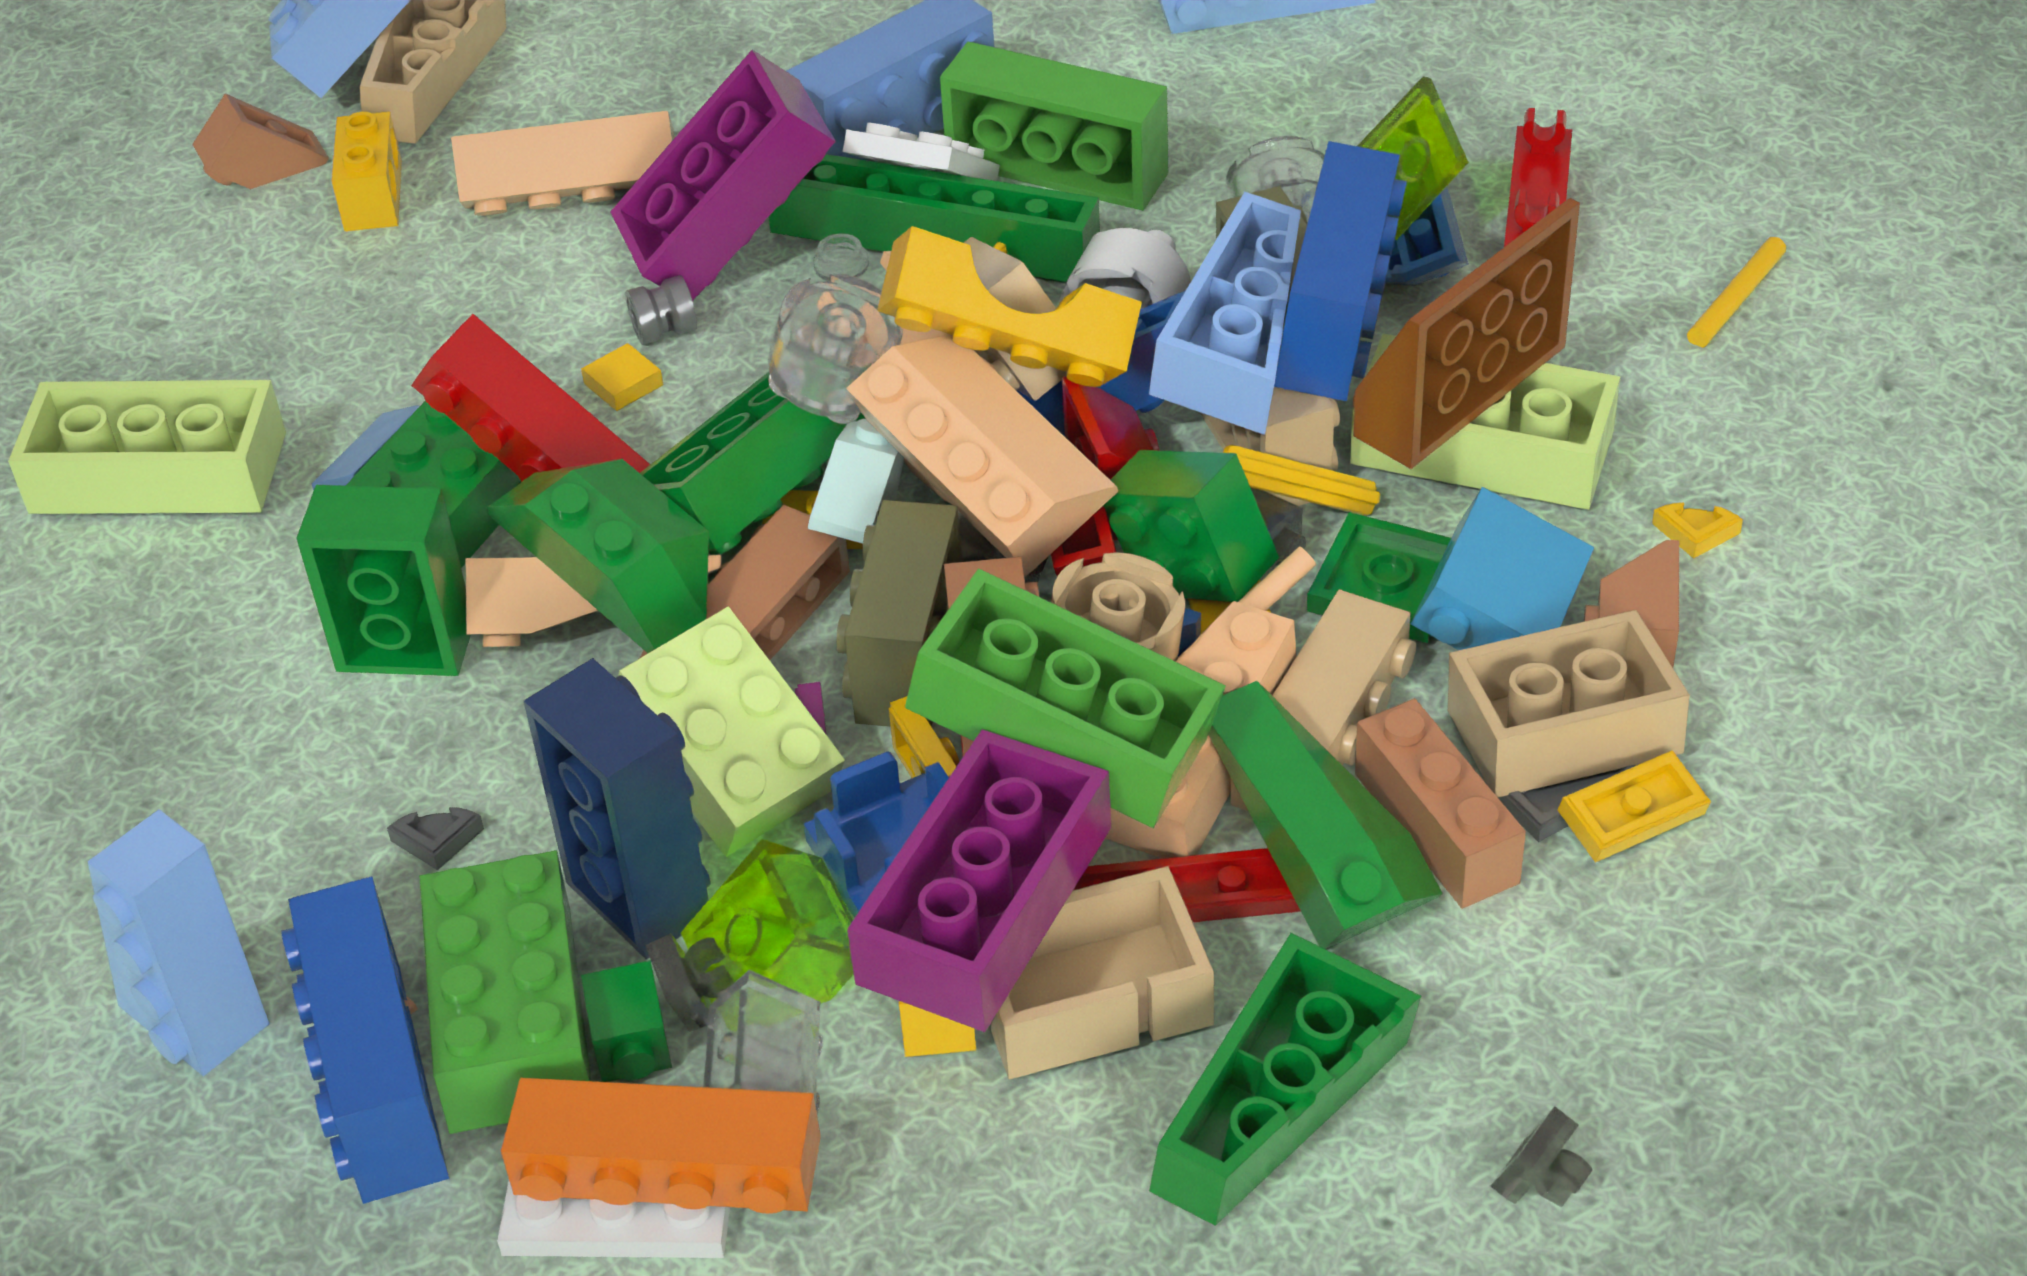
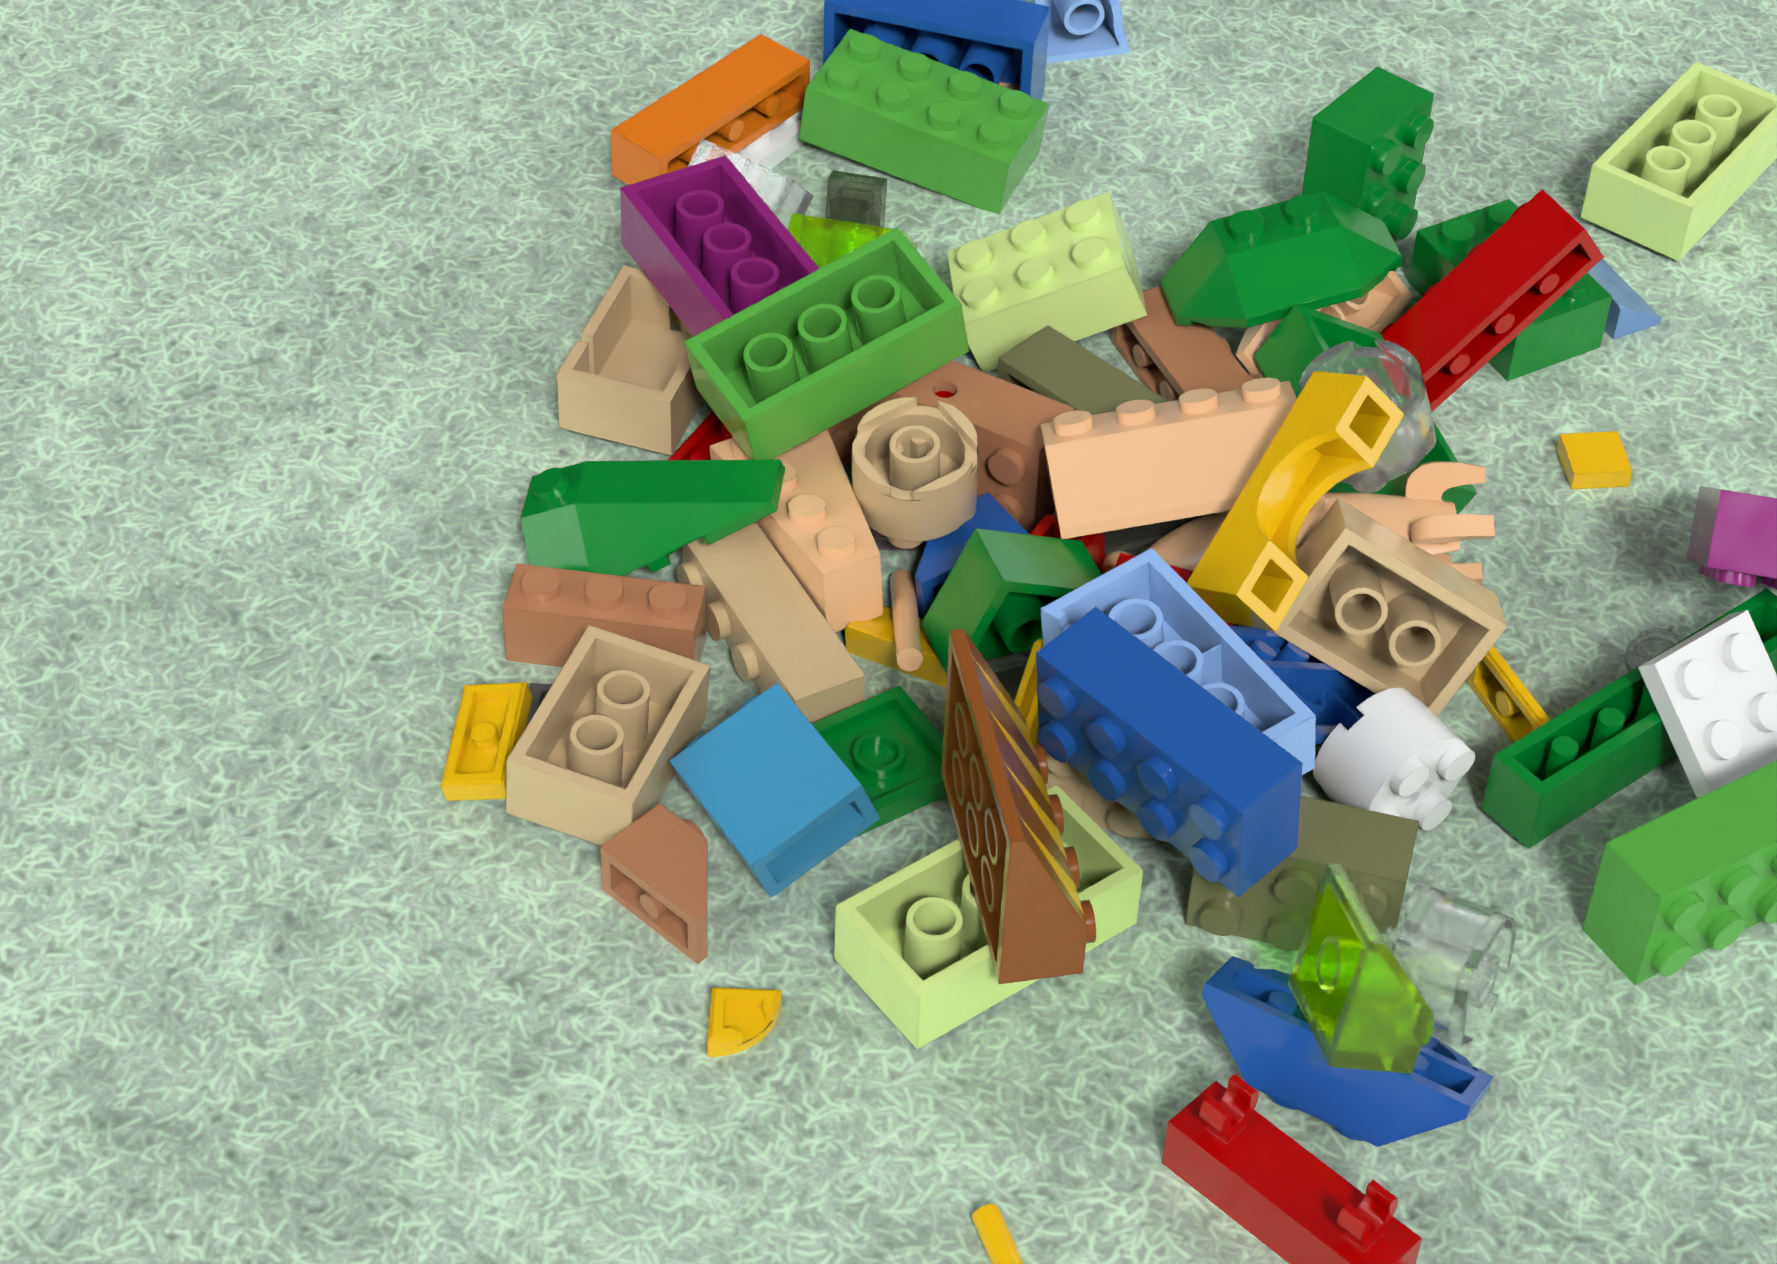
camera: 120 degrees right, 0 degrees up
(436, 836) = (1126, 175): dark grey tile -> none
(619, 803) = (977, 142): dark blue brick -> none
(626, 1022) = (845, 153): green brick -> none
(661, 309) = (1661, 503): flat silver wheel -> none
(1280, 1073) = (474, 411): green wedge -> none
(1544, 1163) = (268, 492): clear smoke tile -> none

